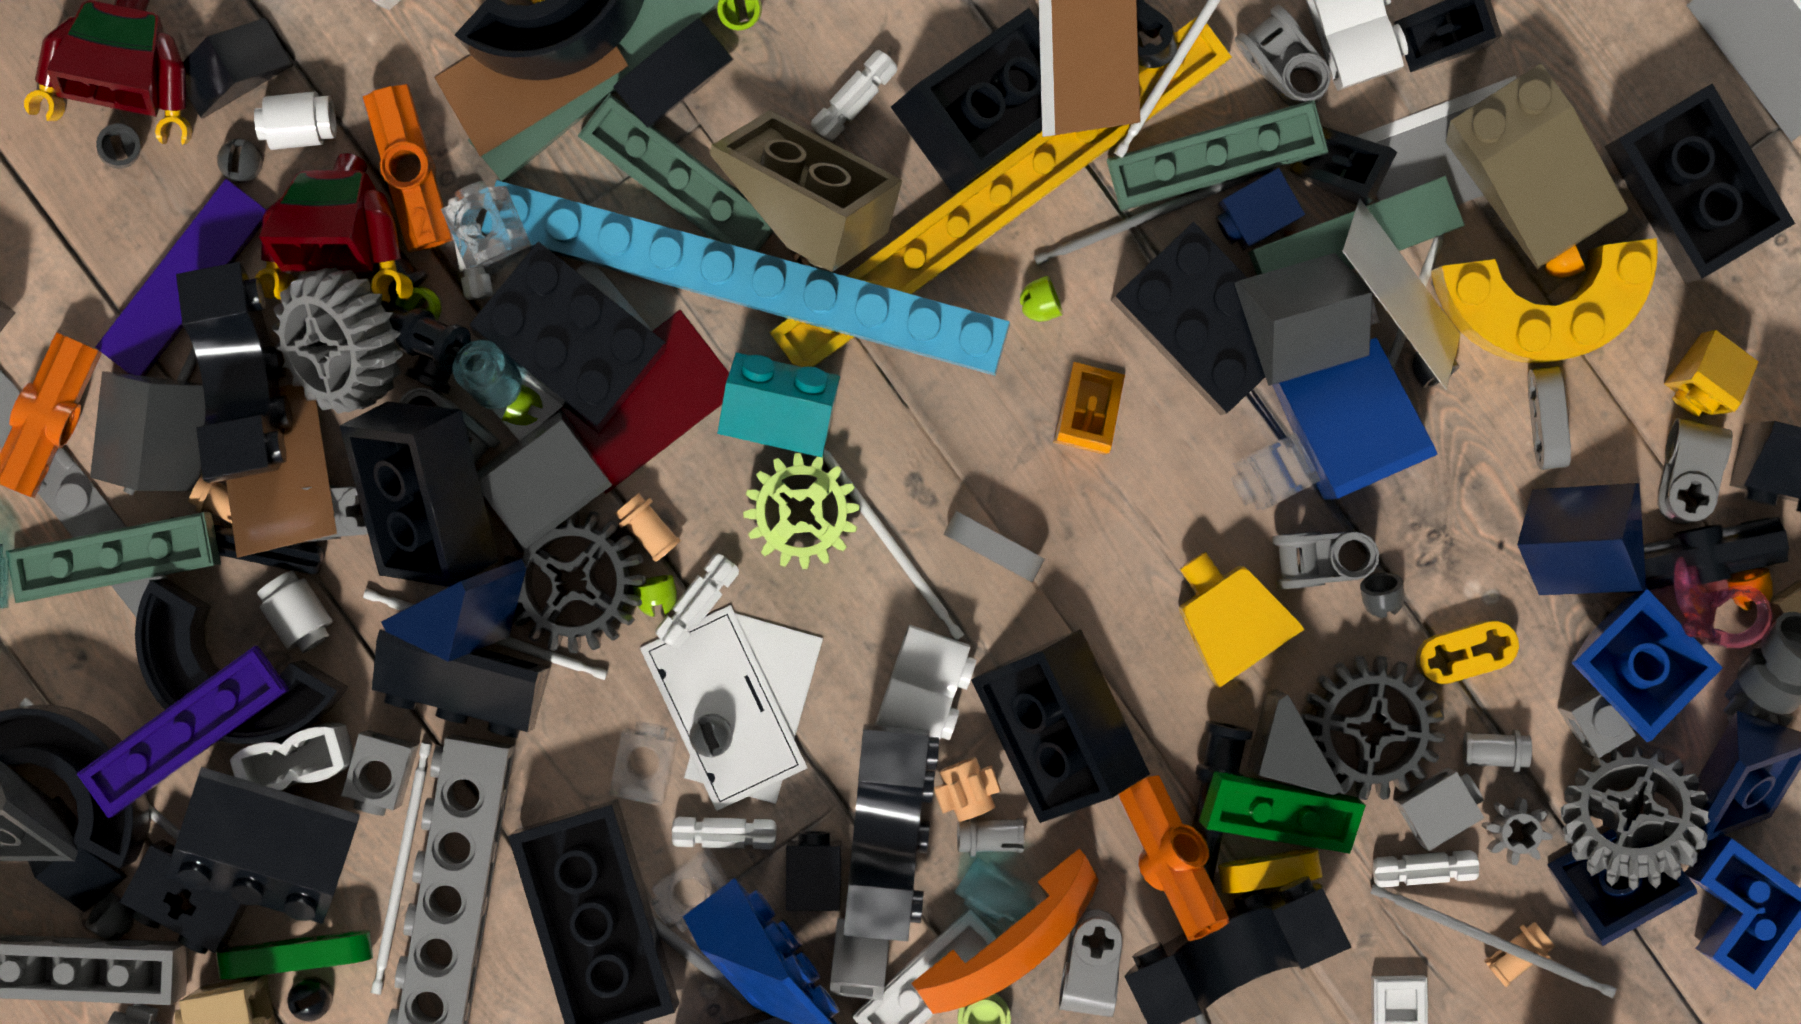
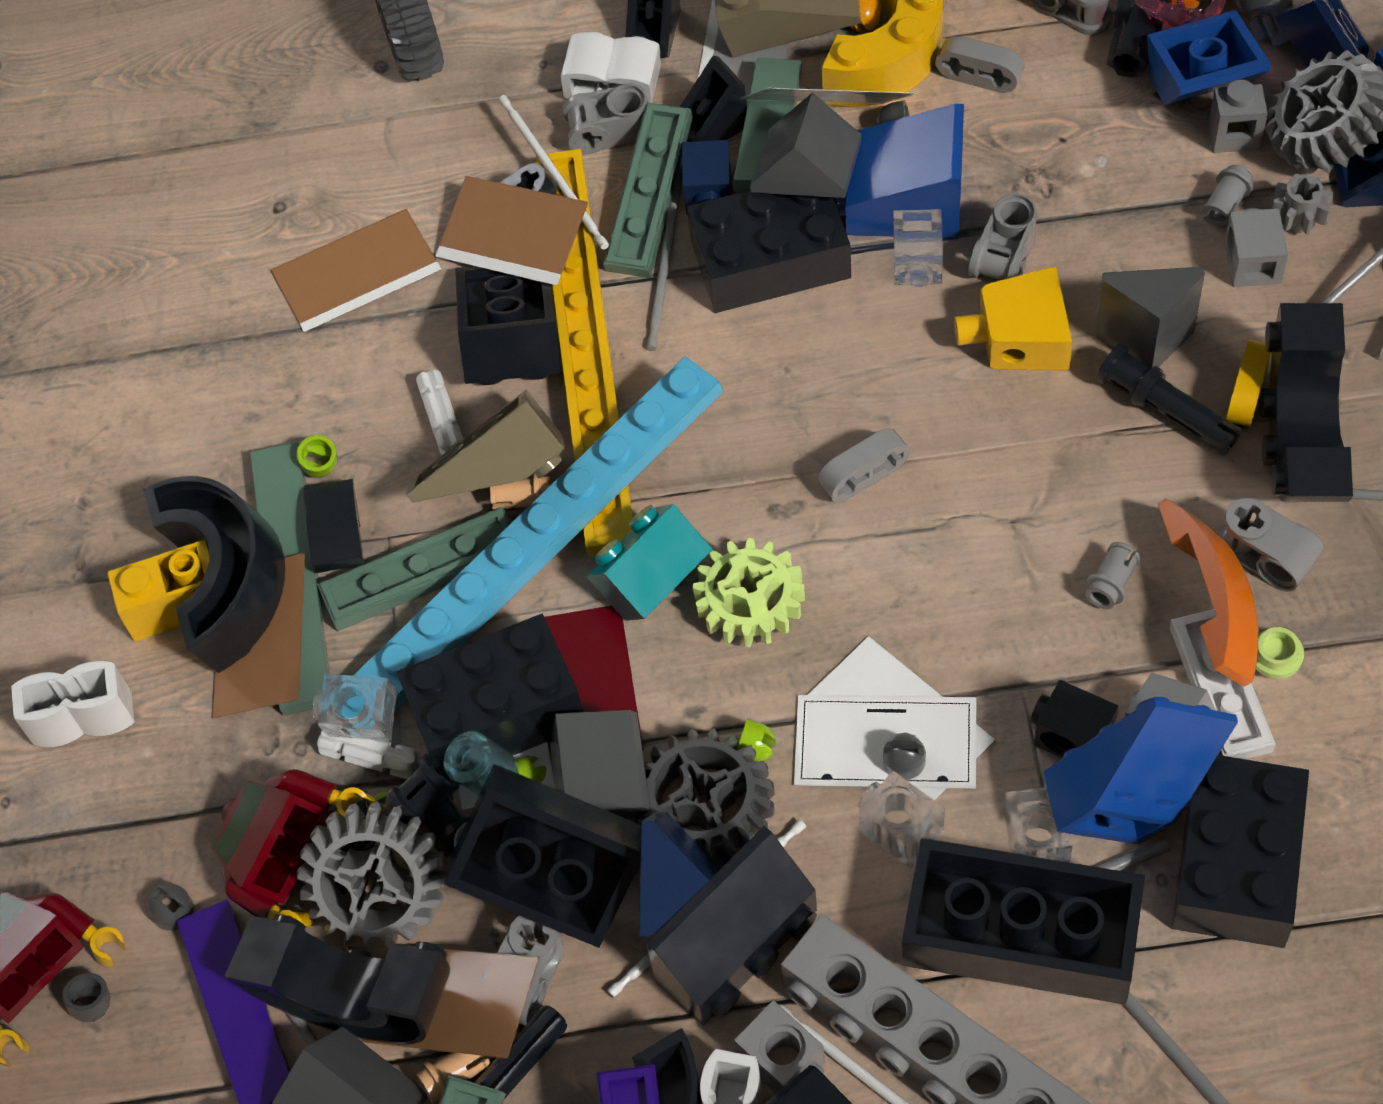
camera: 50 degrees left, 30 degrees down
(233, 65) = (88, 868): black slope -> none
(294, 612) = (585, 1051): white brick -> none
(295, 120) = (168, 834): white brick -> none
(396, 136) = (240, 756): orange piece -> none
(647, 526) = (698, 717): light nougat pin -> none
(697, 601) = (779, 712): white axle -> none
(724, 833) = (1003, 778): white axle -> none
(889, 831) = (1047, 637): black brick -> none
(895, 549) = (846, 543): white piece -> none
(926, 682) = (953, 566): white brick -> none
(967, 789) = (1061, 569): light nougat gear -> none
(995, 893) = (1166, 591): clear light blue brick -> none
(1040, 300) = (684, 344): lime hinge -> none
(1061, 727) = (1045, 482): black slope -> none
(1090, 409) = (797, 355): light orange slope -> none
(1174, 858) = (1202, 434): orange piece -> none
(1281, 812) = (1202, 347): green plate -> none
(1373, 702) = (1166, 243): dark grey gear -> none
(1382, 594) = (1059, 220): dark grey hinge -> none
(1425, 868) = (1305, 272): white axle -> none
(1470, 664) = (1128, 186): yellow beam -> none
(1584, 539) = (1089, 69): dark blue slope -> none

